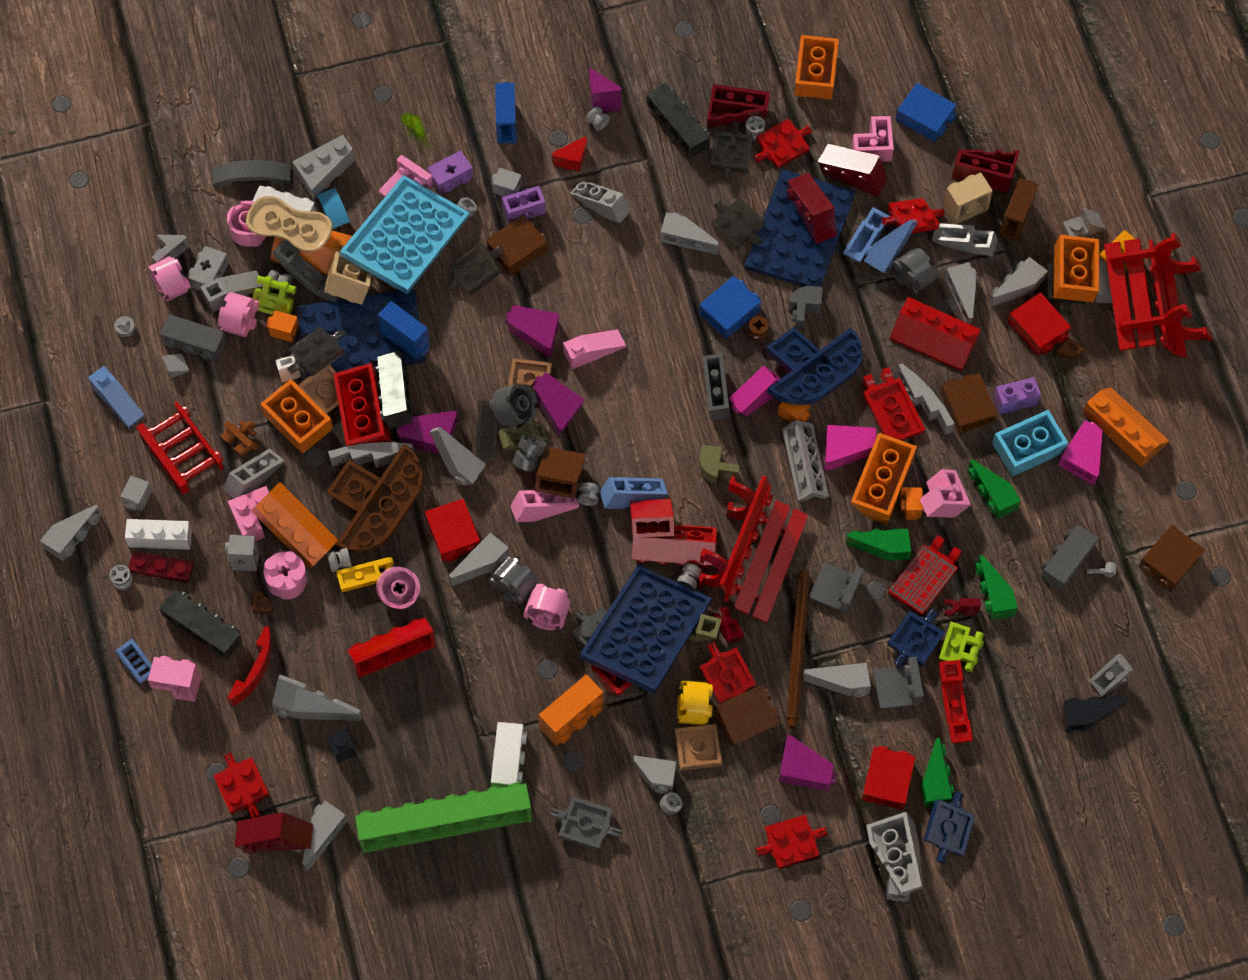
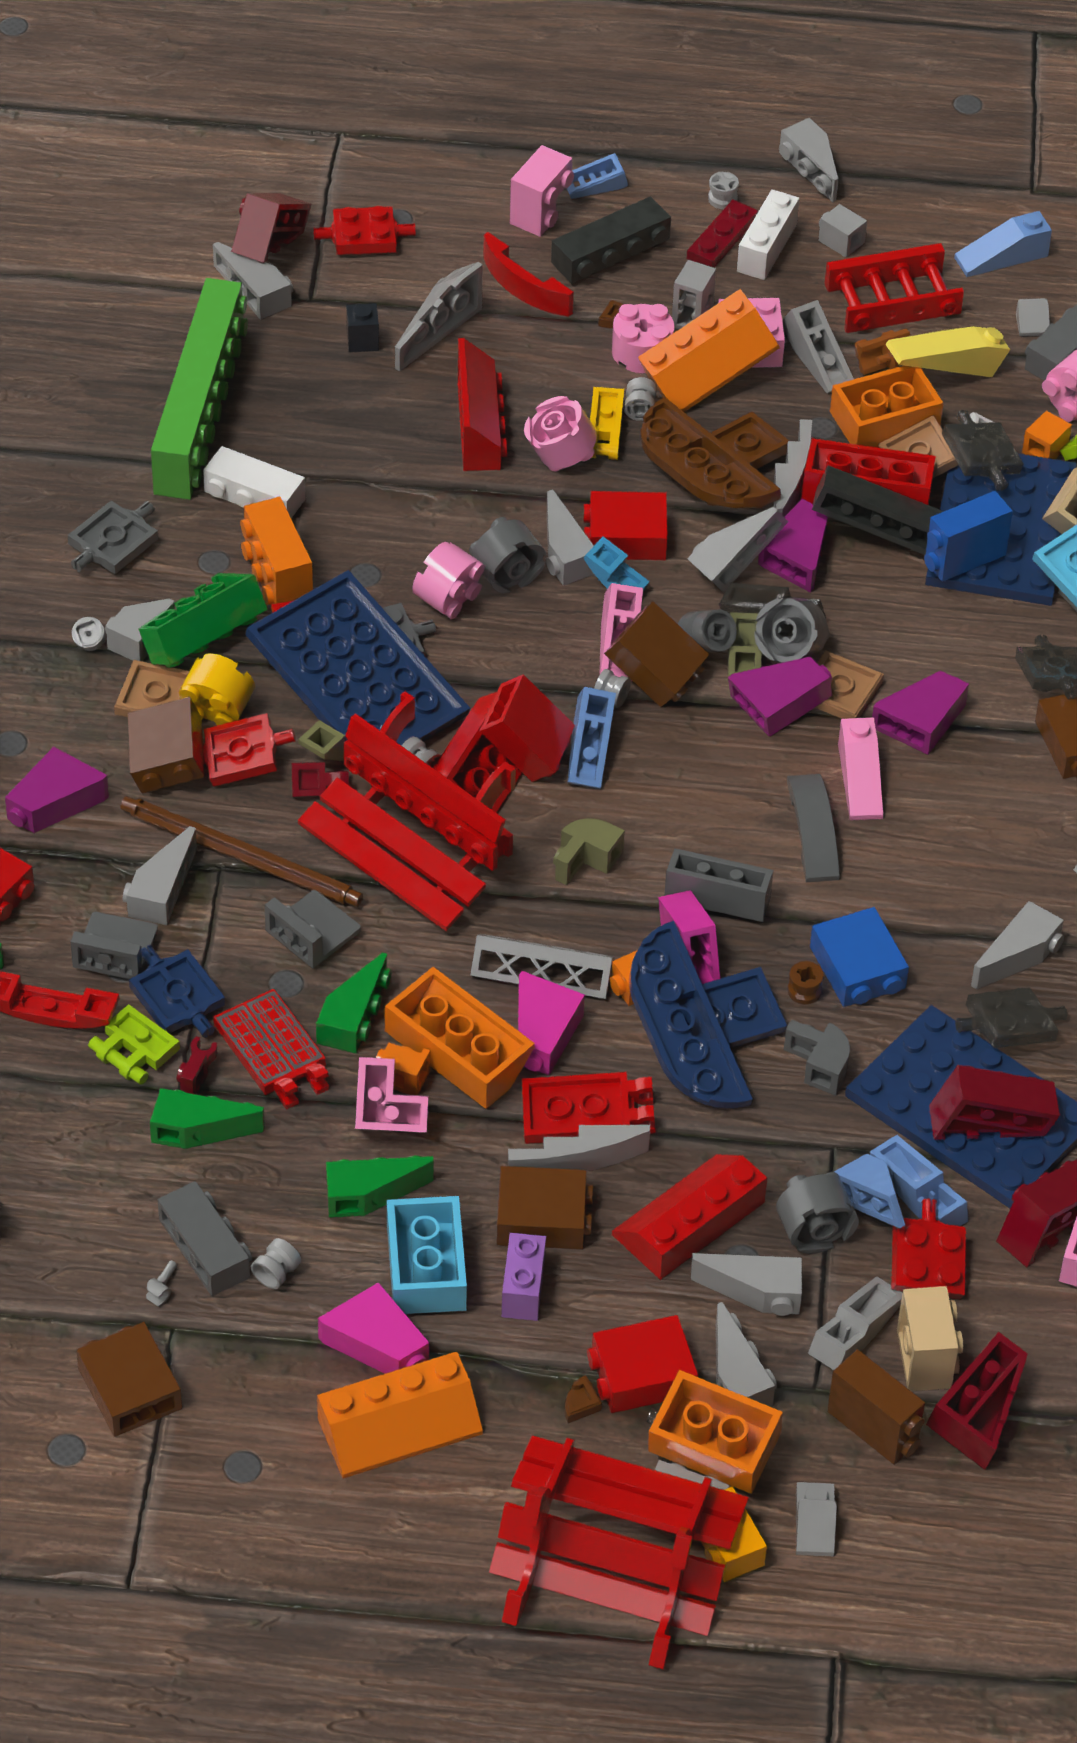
camera: 110 degrees right, 15 degrees down
(232, 392) = (953, 350): none -> light yellow wedge
(497, 520) = (610, 567): none -> dark azure slope
(635, 736) = (199, 619): none -> green wedge
(640, 358) = (815, 827): none -> dark grey slope
(1067, 516) = (274, 1265): none -> light grey wheel

